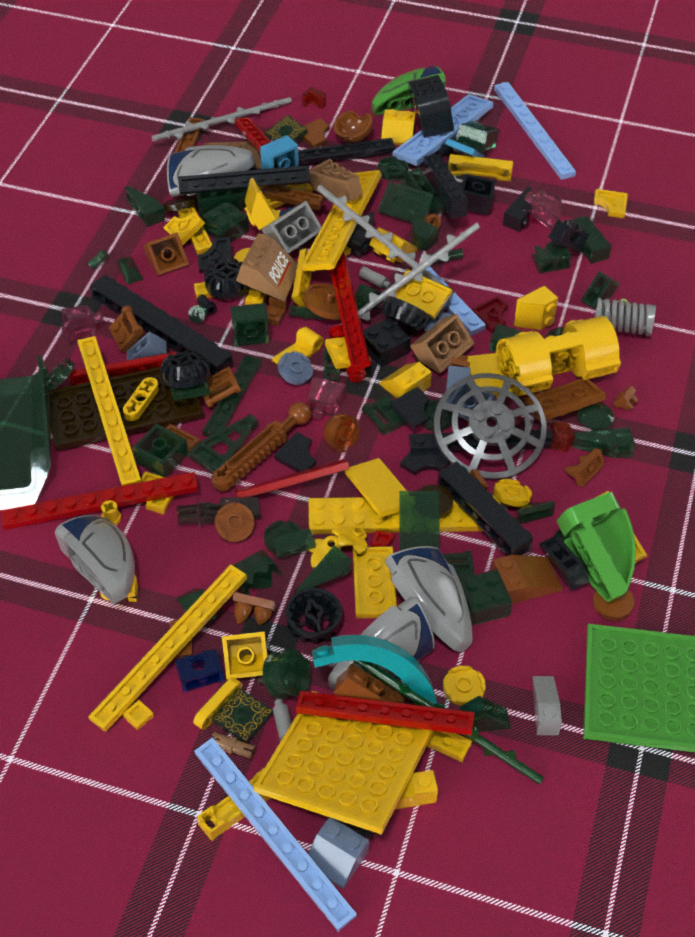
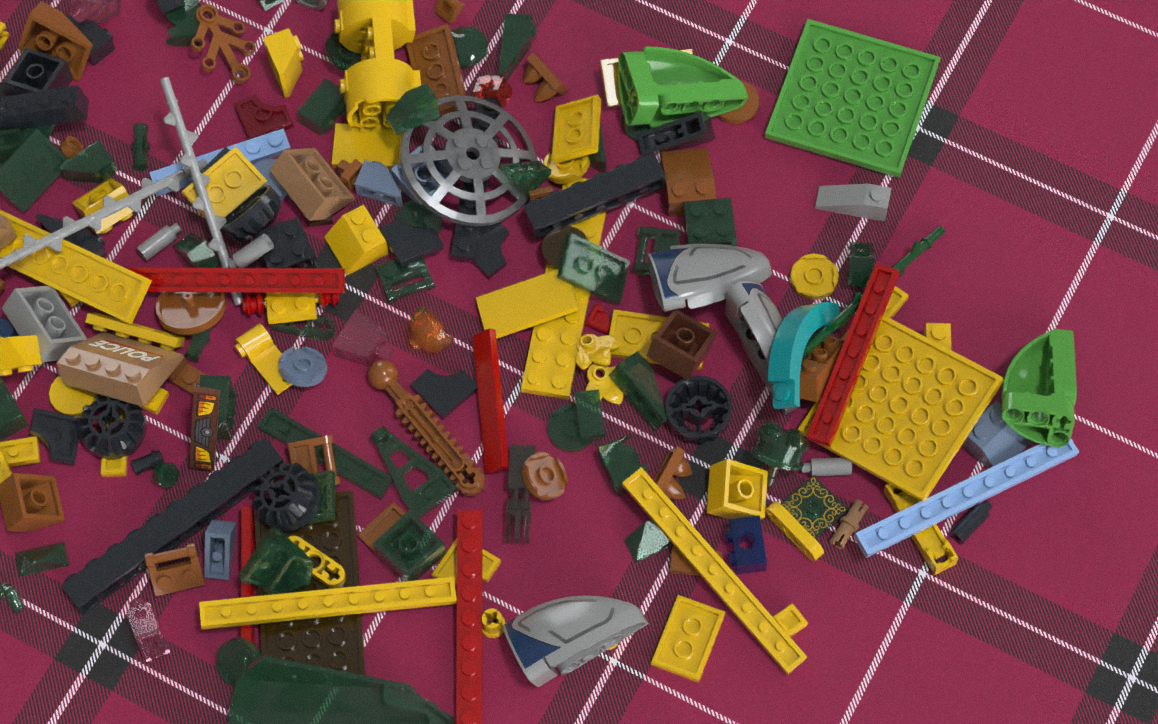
camera: 75 degrees left, 15 degrees up
(114, 644) = (688, 638): none -> yellow tile
(129, 371) = (278, 565): none -> clear green piece
(225, 313) = (204, 428): none -> tile
(251, 844) = (970, 522): none -> black cylinder
(363, 586) = (681, 344): none -> copper brick
(372, 315) = (251, 252): none -> light grey cylinder
(391, 879) = (1042, 389): none -> bright green panel
(489, 463) = (526, 175): none -> clear green slope
(507, 189) = (55, 35): none -> dark orange slope
(511, 372) = (413, 109): none -> clear green slope
(541, 274) = (222, 41): none -> dark orange plant
(543, 490) = (576, 129): none -> yellow tile

